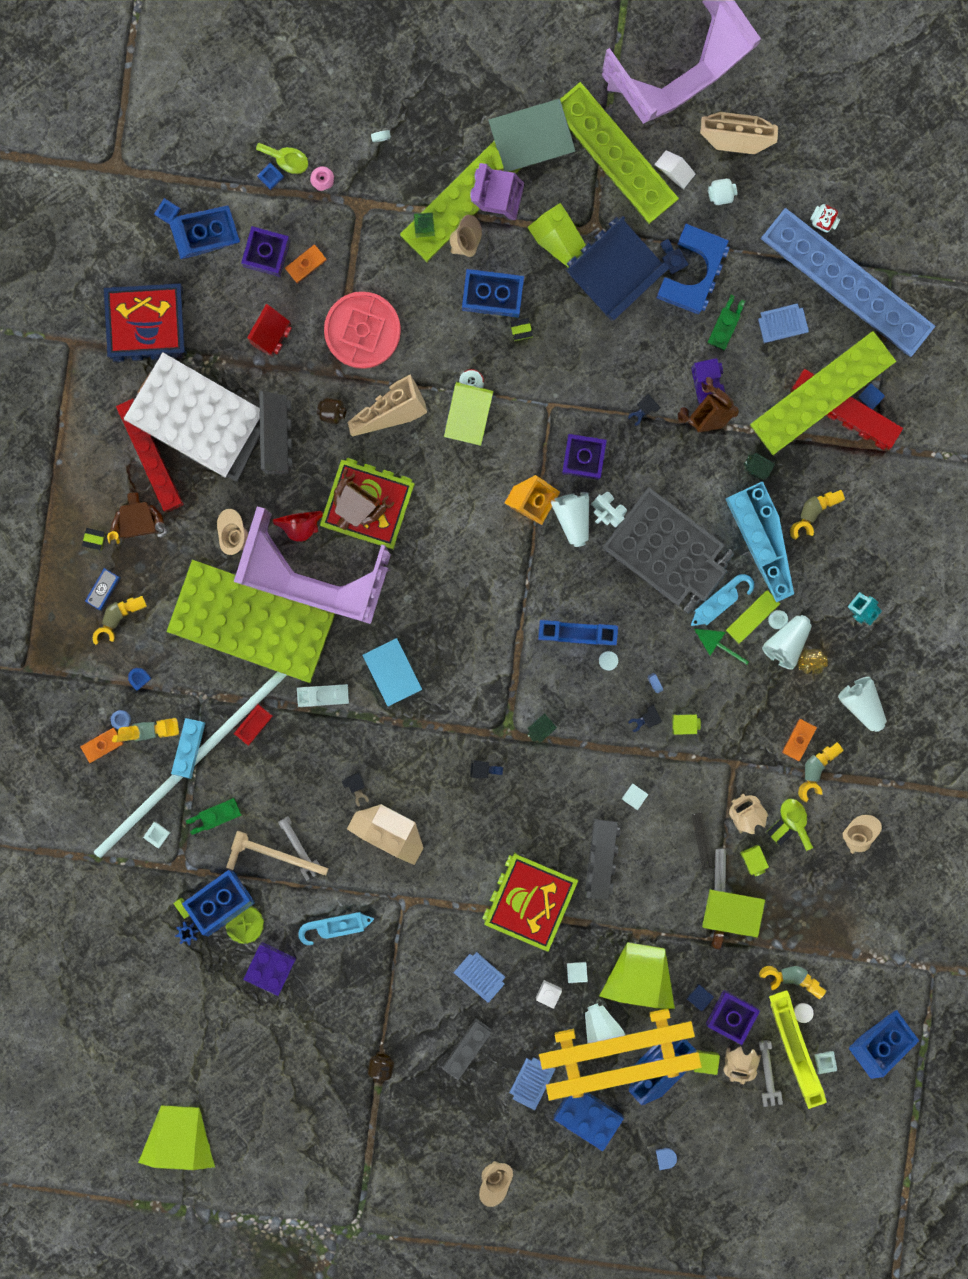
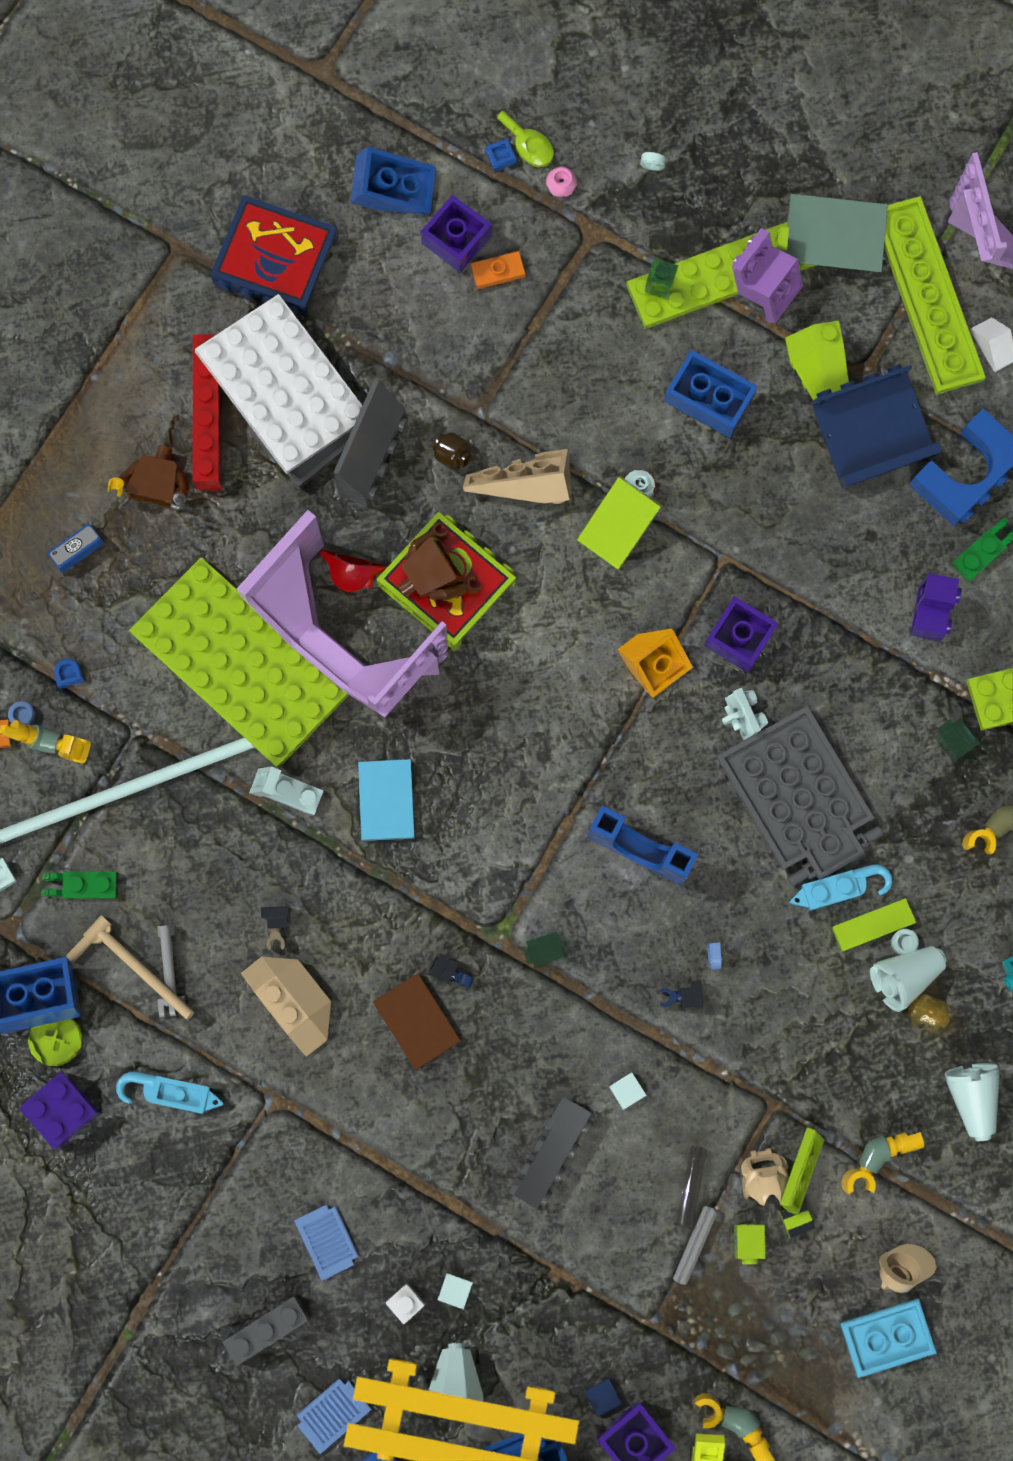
camera: 20 degrees right, 10 degrees down
(93, 539) = (92, 483): tile -> none
(115, 613) = (76, 581): piece -> none
(167, 211) = (358, 142): blue tile -> none
(188, 748) = (88, 784): medium azure plate -> none
(231, 532) = (262, 538): tan piece -> none
(253, 724) = (182, 791): red tile -> none
(269, 331) = (418, 323): red slope -> none
(362, 330) = (532, 373): coral plate -> none
(380, 1068) = (143, 1306): dark brown head -> none
(466, 236) = (706, 315): tan piece -> none
(477, 810) = (416, 1021): none -> reddish brown tile
(521, 329) = (727, 453): tile -> none
(530, 901) = (433, 1169): panel -> none
(573, 517) = (697, 703): light aqua cone -> none
(608, 660) = (665, 902): light aqua tile -> none
(640, 978) = (535, 1335): lime wedge -> none
(645, 406) = (844, 607): black piece -> none
(673, 259) = (951, 446): dark blue plate -> none
(685, 724) = (732, 1024): lime brick -> none
(711, 639) = (808, 932): green piece -> none
(713, 412) = (927, 645): reddish brown torso -> none
(717, 939) = (658, 1327): reddish brown tile -> none
(733, 913) = (693, 1301): lime tile -> none
(764, 537) = (928, 828): medium azure wedge -> none
(770, 800) = (802, 1171): none -> lime tile
(795, 818) = (825, 1210): lime piece -> none
(799, 739) = (871, 1109): orange plate -> none
(868, 882) = (888, 1338): none -> medium azure tile

